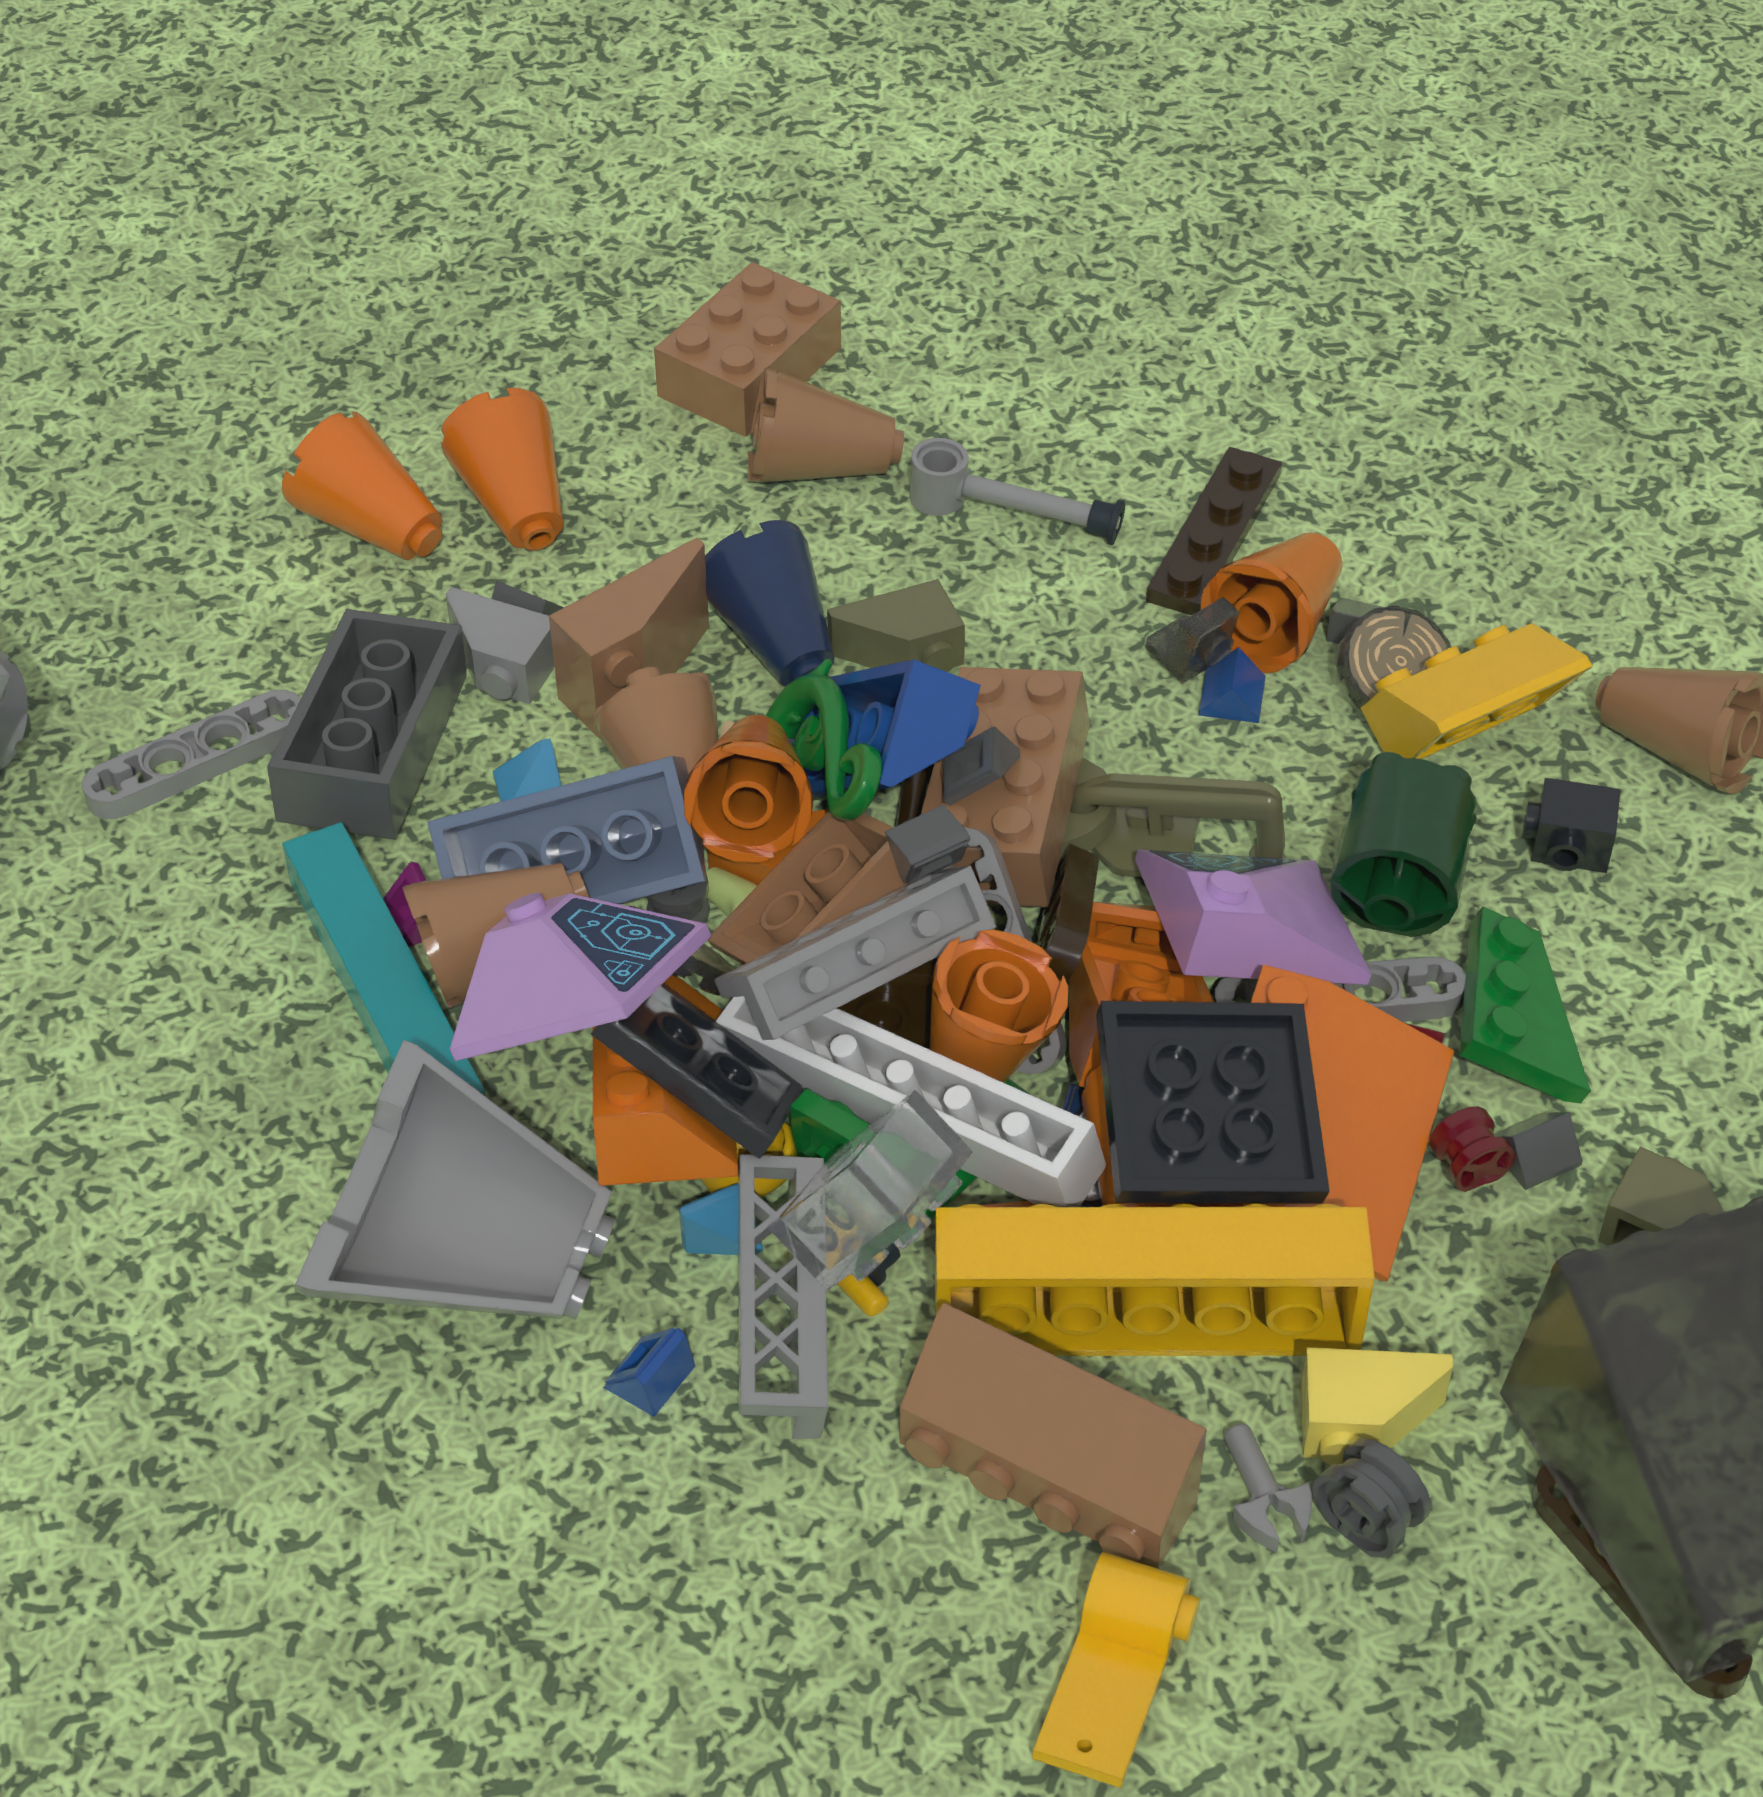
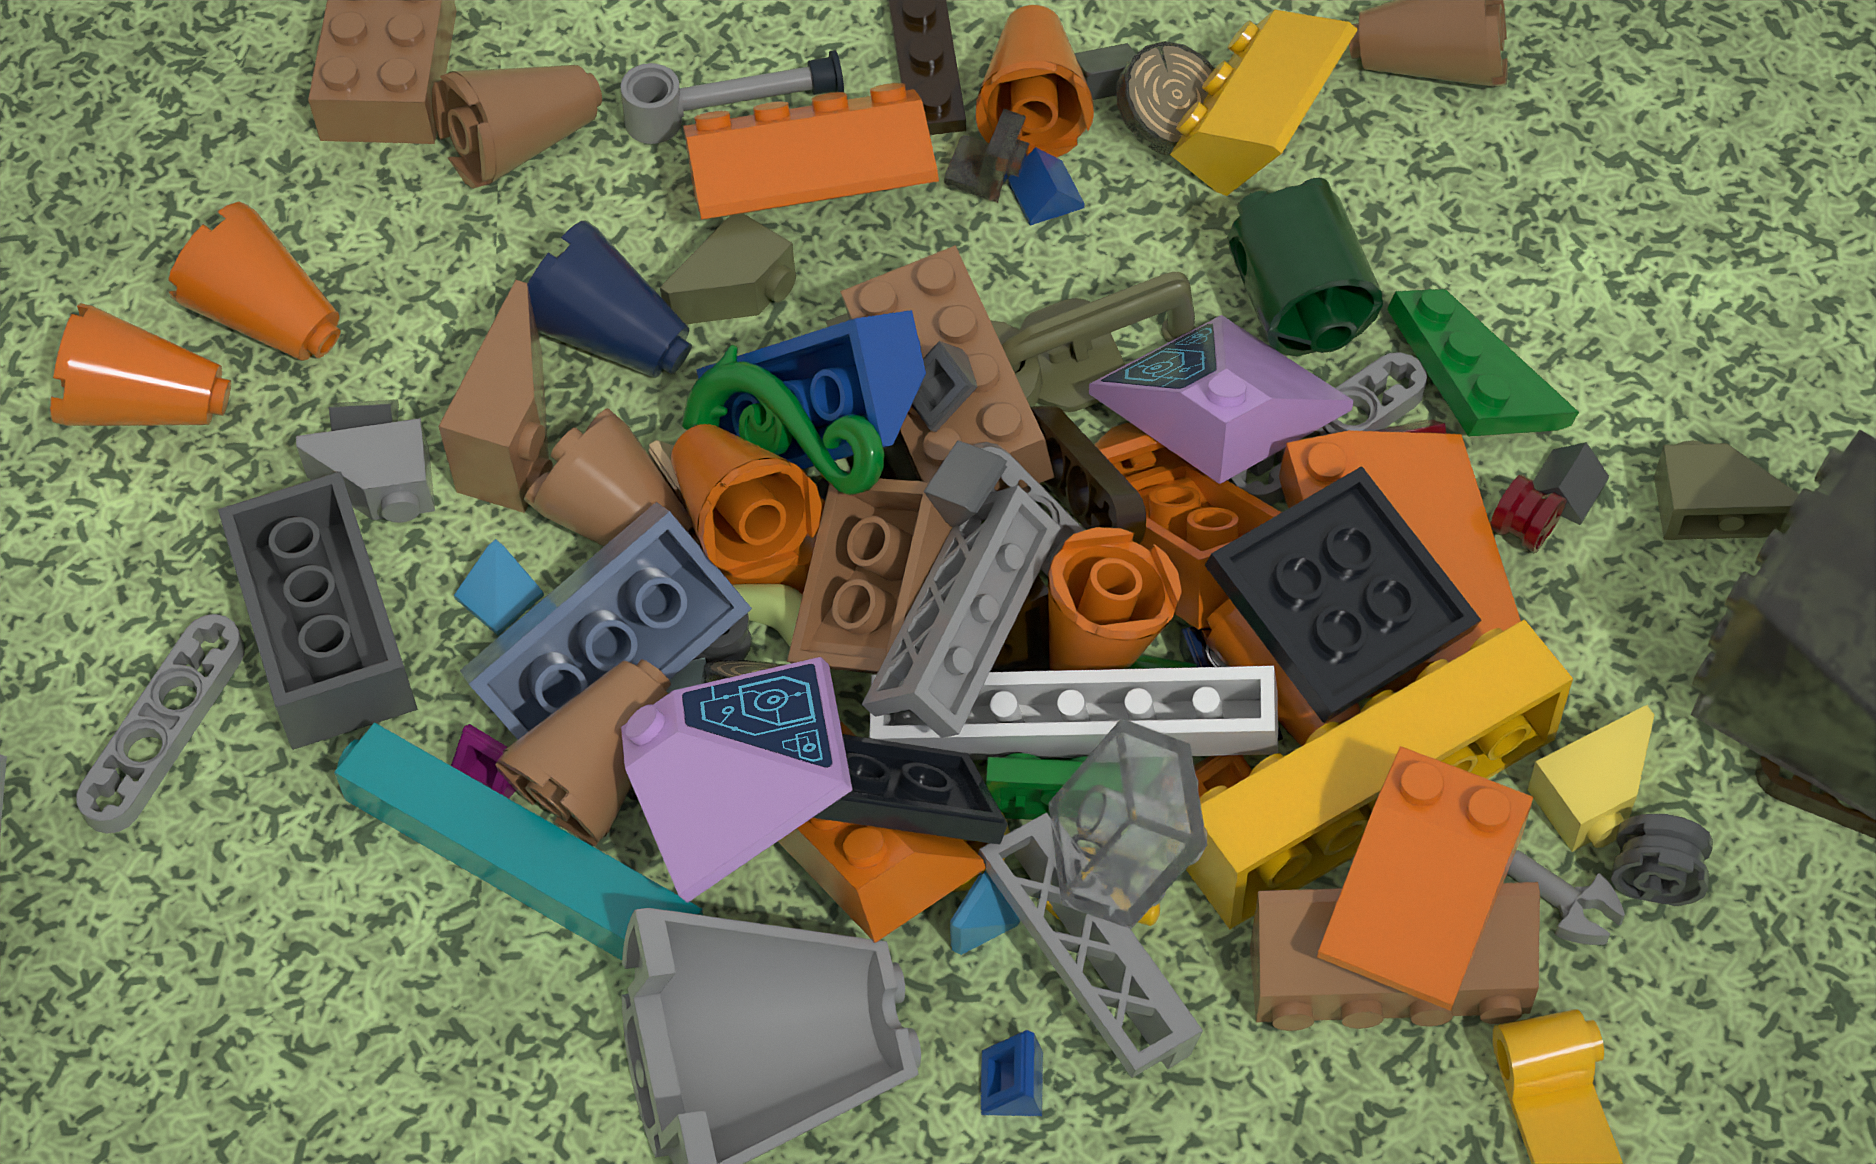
camera: 30 degrees left, 10 degrees up
(1035, 562) = (809, 151): none -> orange slope
(1095, 1360) = (1425, 877): none -> orange slope
(1573, 825) = (1411, 178): black brick -> none

